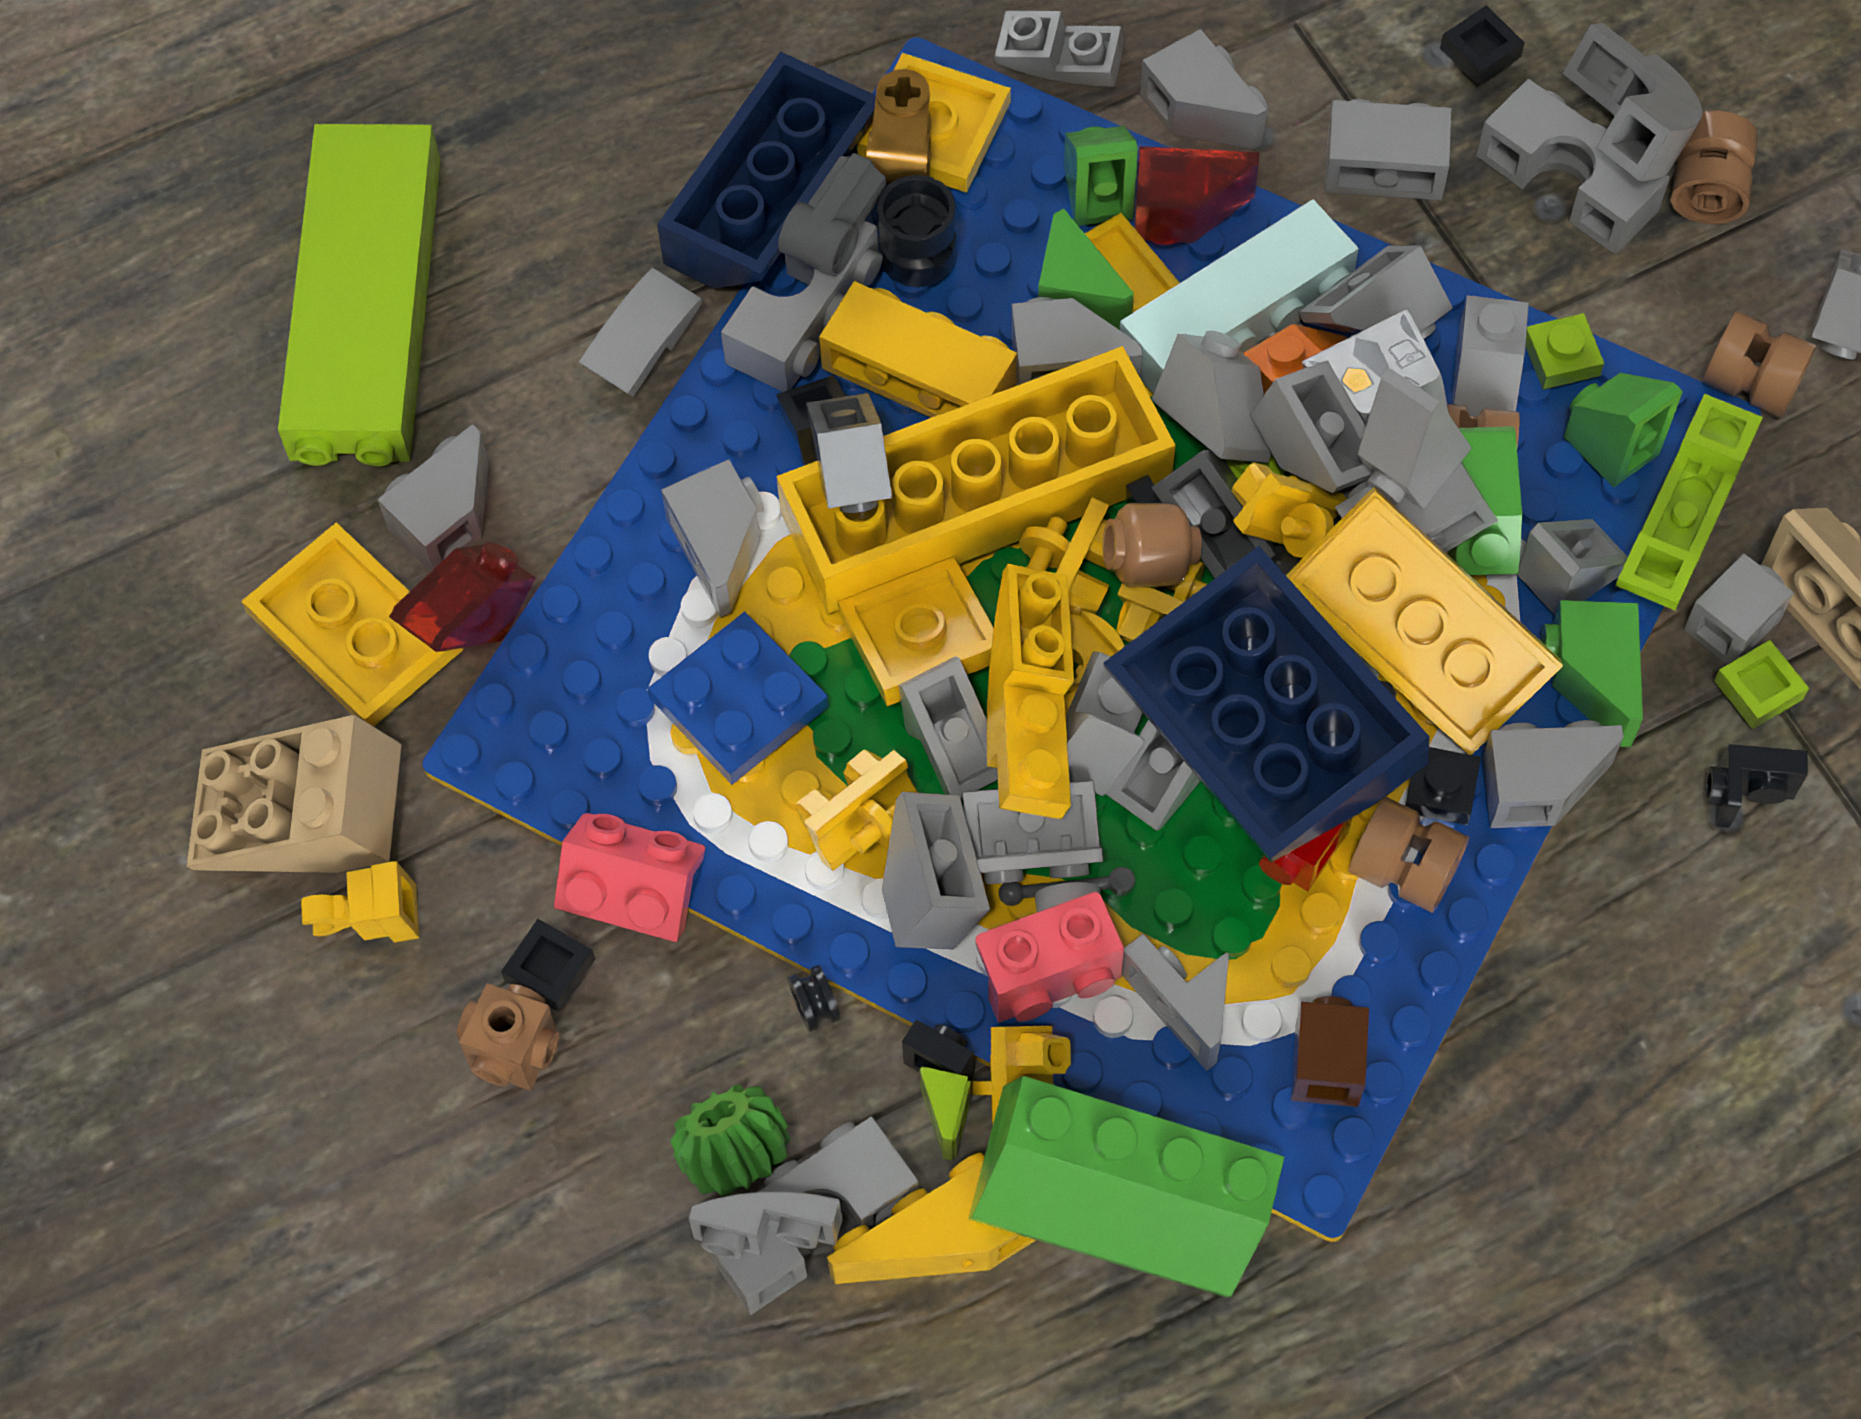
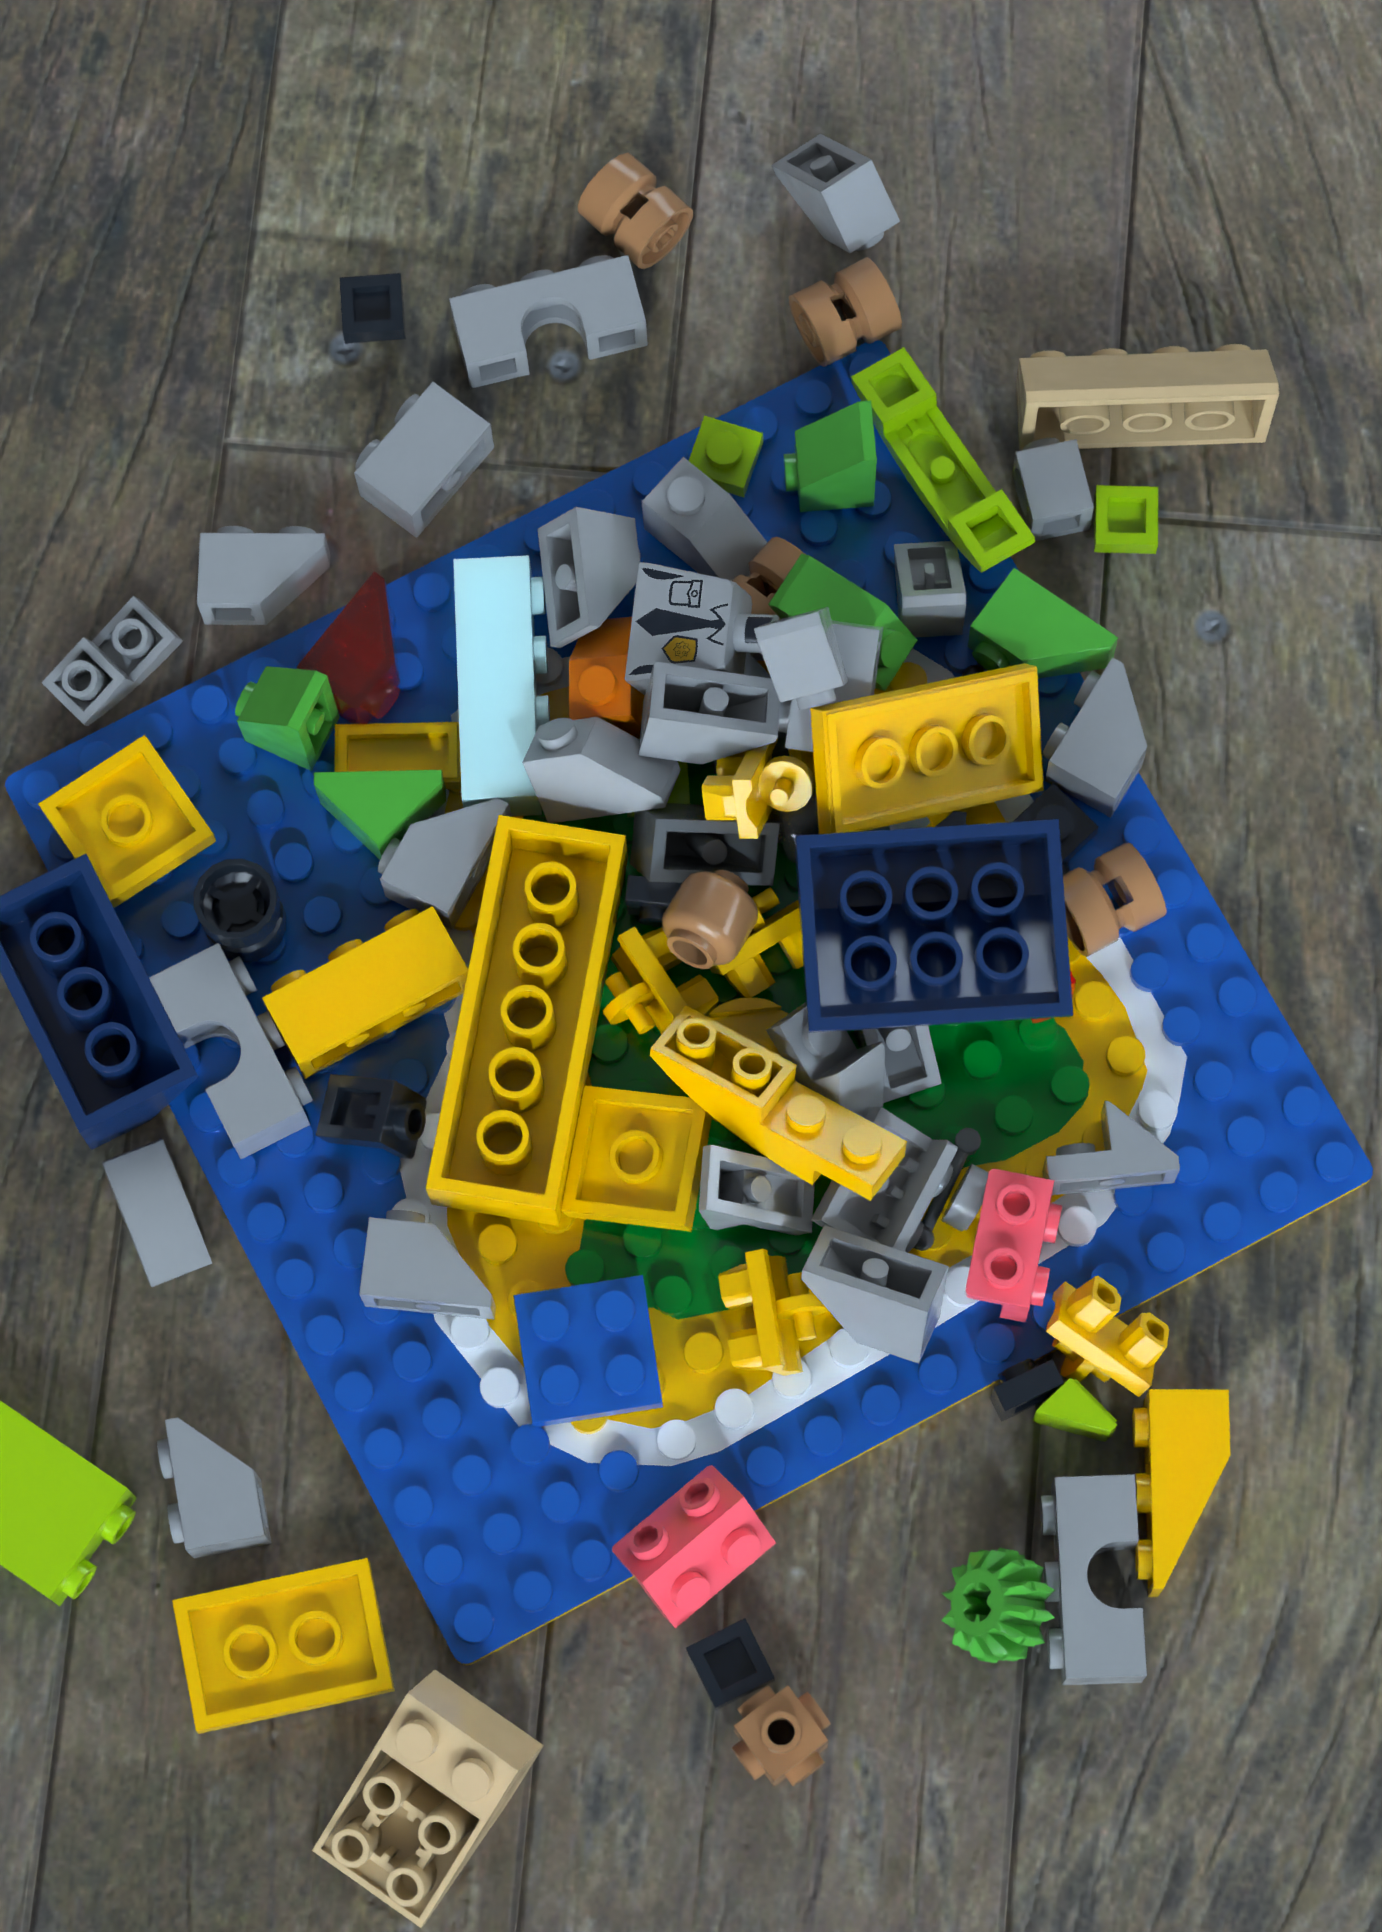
camera: 55 degrees left, 10 degrees up
(377, 905) = (579, 1780): yellow piece -> none
(466, 598) = (343, 1530): clear red slope -> none
(742, 1221) = (1093, 1642): light grey slope -> none
(813, 998) = (906, 1459): black bush -> none
(828, 226) = (199, 985): dark grey piece -> none
(850, 452) = (455, 1109): slope -> none
(901, 126) = (147, 868): pearl gold piece -> none
(1125, 1186) = (1249, 1313): bright green slope -> none
(1330, 1052) = (1231, 1075): reddish brown brick -> none
(1647, 96) = (541, 217): light grey arch -> none
(1755, 772) = (1206, 577): black bracket -> none

